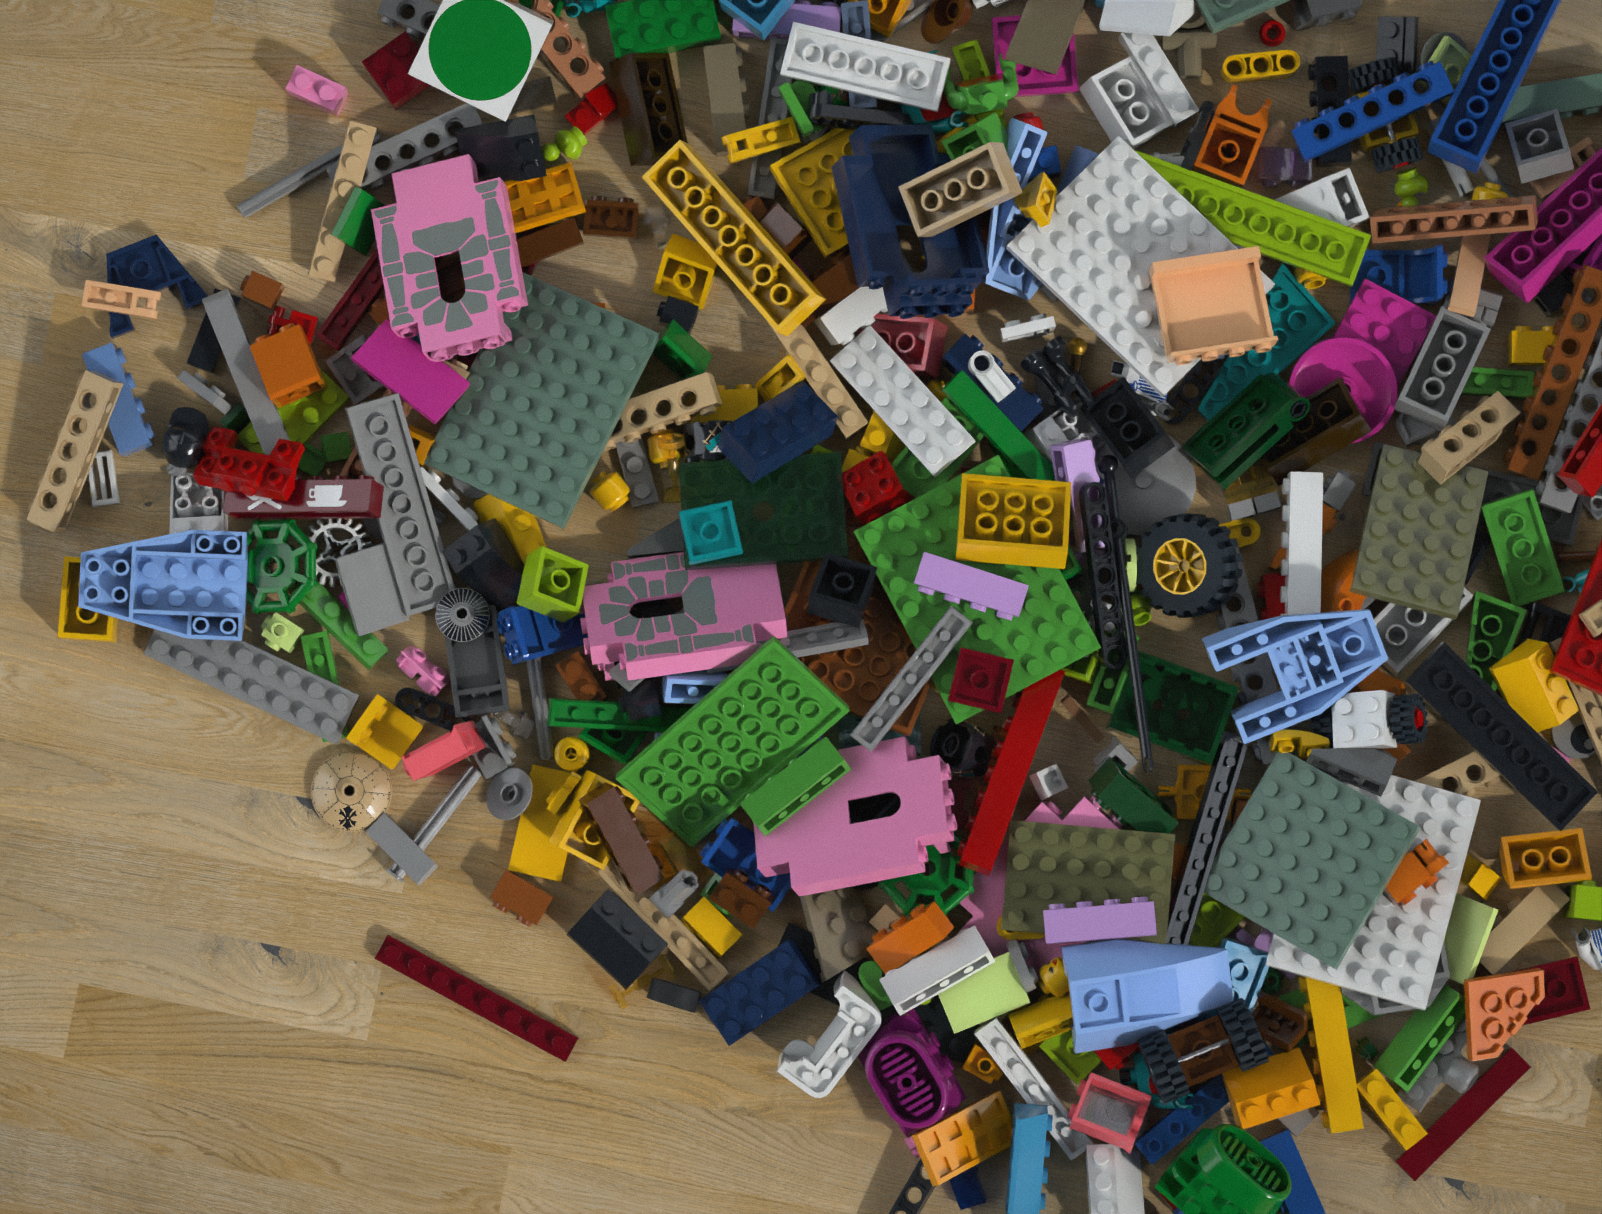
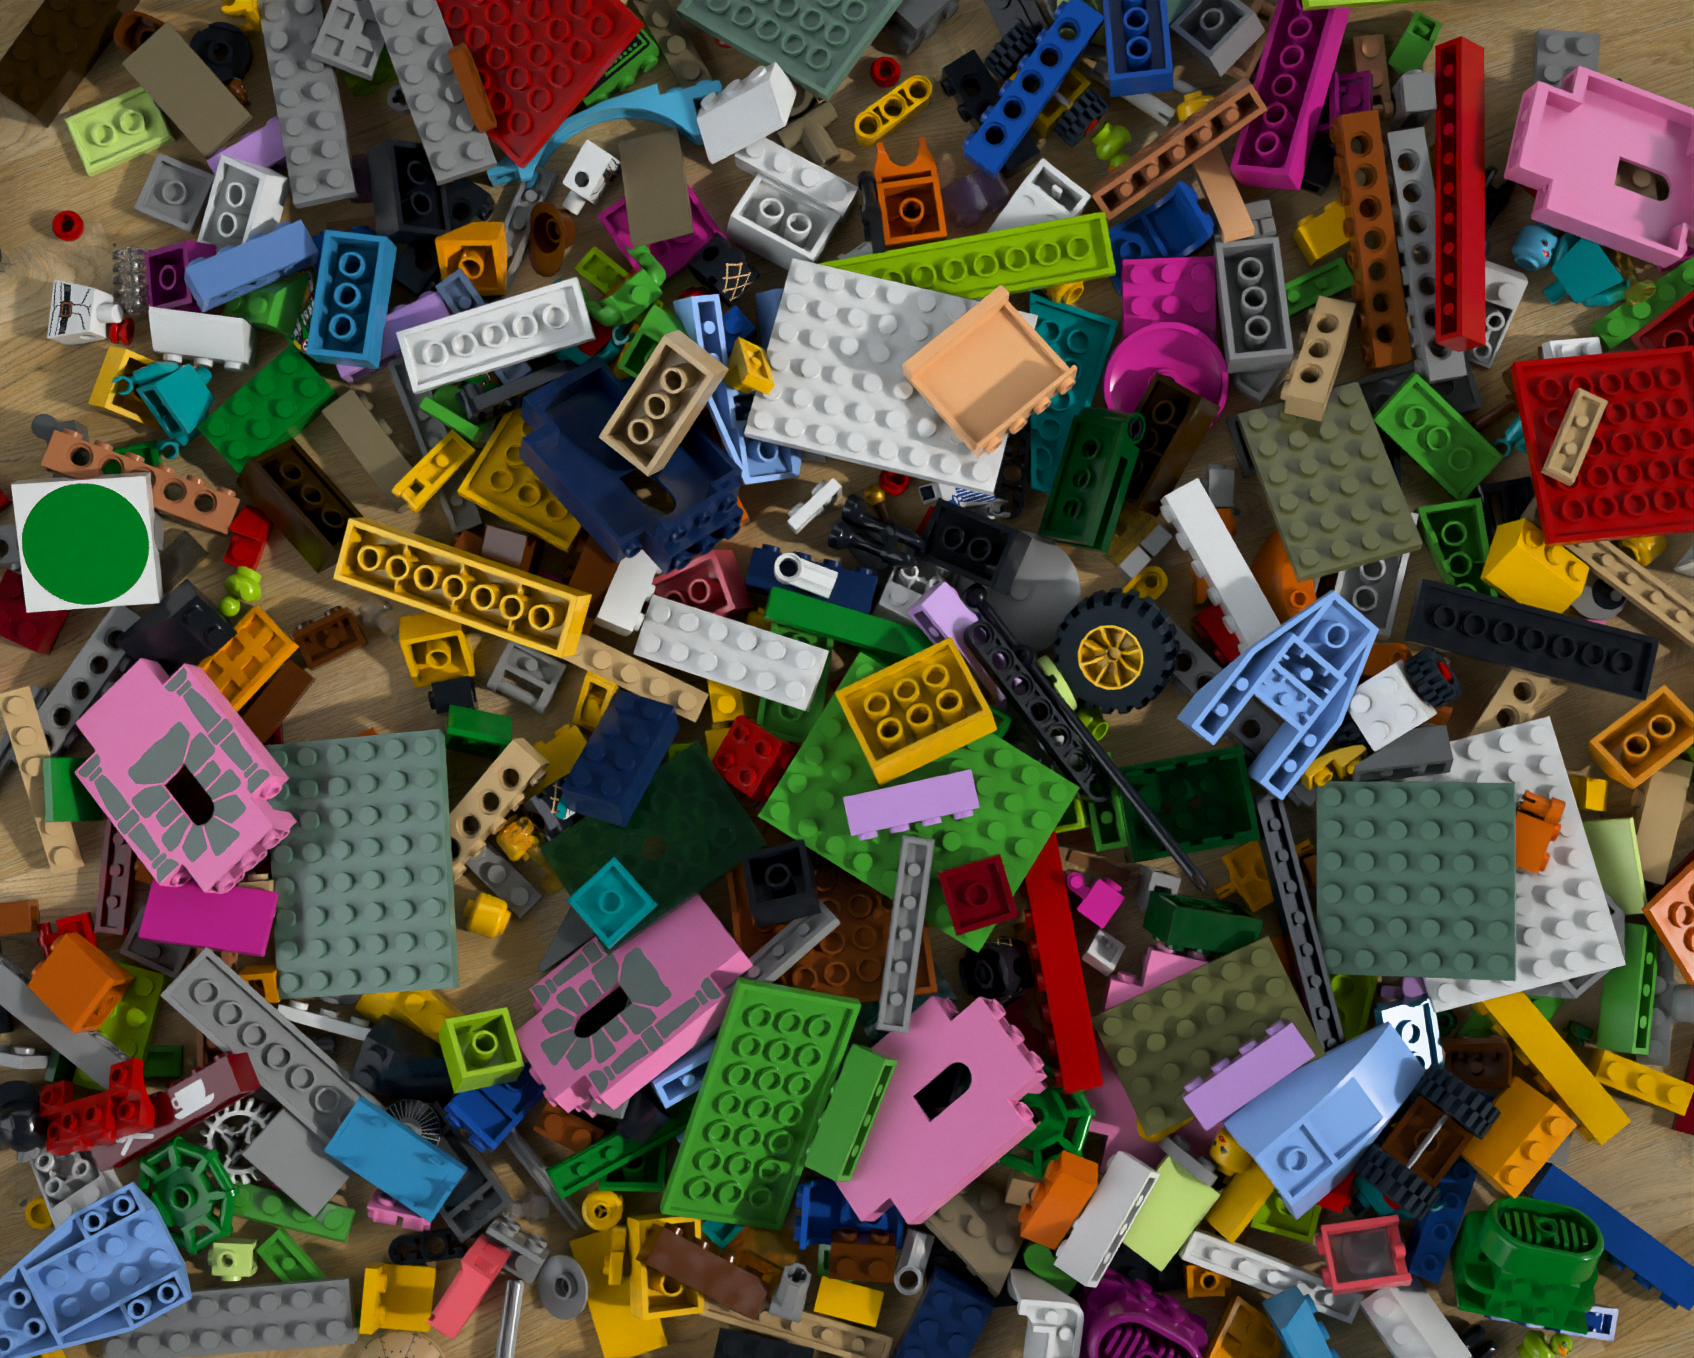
camera: 30 degrees left, 0 degrees up
(158, 518) = (38, 1214): none -> yellow tile
(336, 447) = (180, 1034): bright green tile -> none
(444, 628) = (395, 1159): none -> dark azure piece
(648, 821) = (720, 1232): none -> teal plate
(747, 325) = (531, 666): none -> light grey plate
(778, 924) = (913, 1258): none -> white piece
(1062, 113) = (722, 269): none -> black brick
(1064, 741) = (1095, 901): none -> dark pink brick
(1091, 346) = (891, 488): none -> red plate

